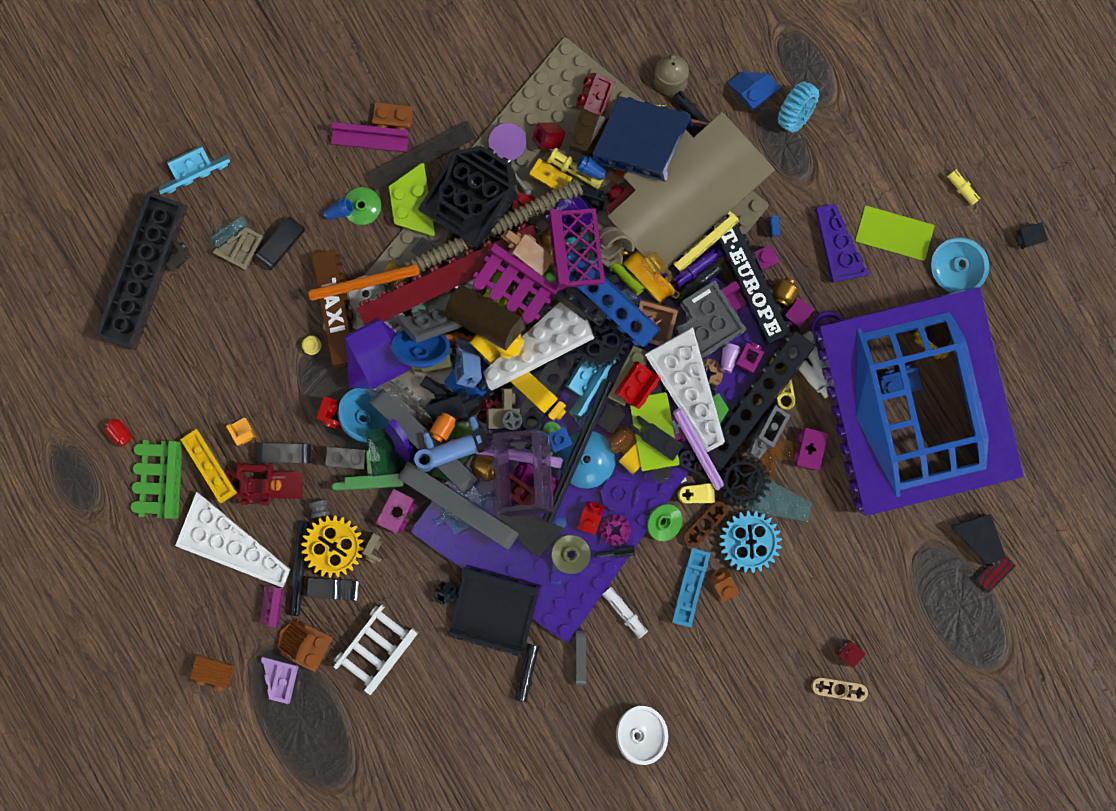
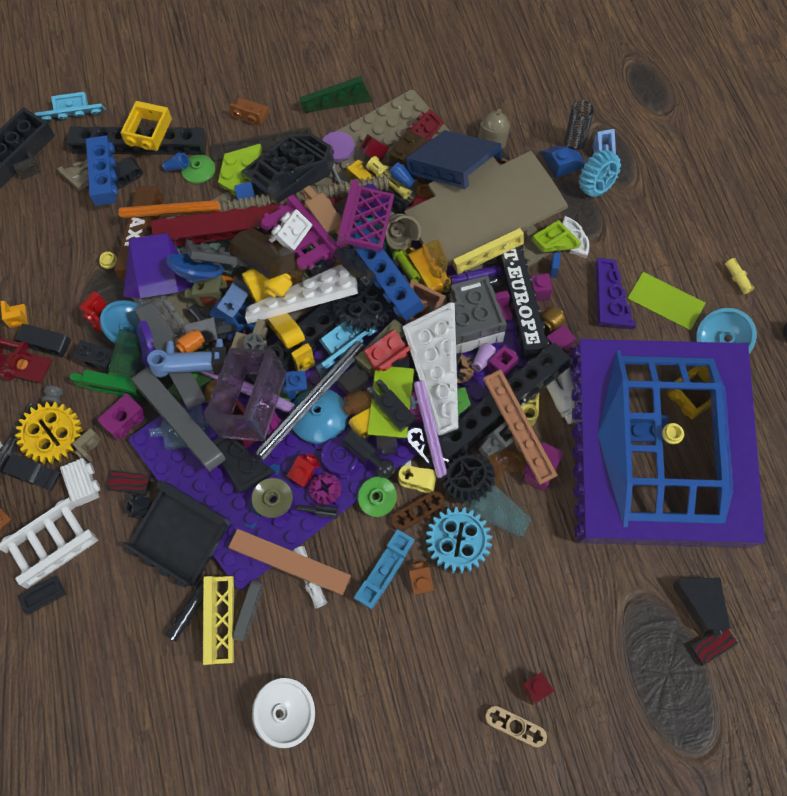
camera: 15 degrees right, 20 degrees down
(229, 231) = (72, 157): clear light blue piece -> none
(251, 224) = (101, 170): none -> blue brick
(295, 161) = (149, 112): none -> yellow window
(351, 180) = (176, 140): none -> black brick
(370, 137) = (224, 120): magenta fence -> none
(382, 585) = (80, 482): none -> white brick
(389, 695) = (42, 595): none -> black tile
(426, 571) = (129, 482): none -> tile
(431, 235) = (244, 190): none -> blue slope
(487, 75) = (339, 95): none -> dark green wing
(507, 288) = (291, 230): none -> white bracket
(551, 675) = (210, 620): none -> light yellow fence
(605, 607) = (290, 562): none -> nougat tile
(646, 487) = (366, 452): none -> black piece
(767, 43) = (584, 132): none -> black piece
(768, 196) = (555, 238): none -> lime wing
(781, 424) = (520, 427): none -> nougat tile
(789, 184) = (577, 231): none -> white tile
(797, 66) = (604, 140): none -> light blue slope
(924, 406) = (672, 433): none -> light yellow plate

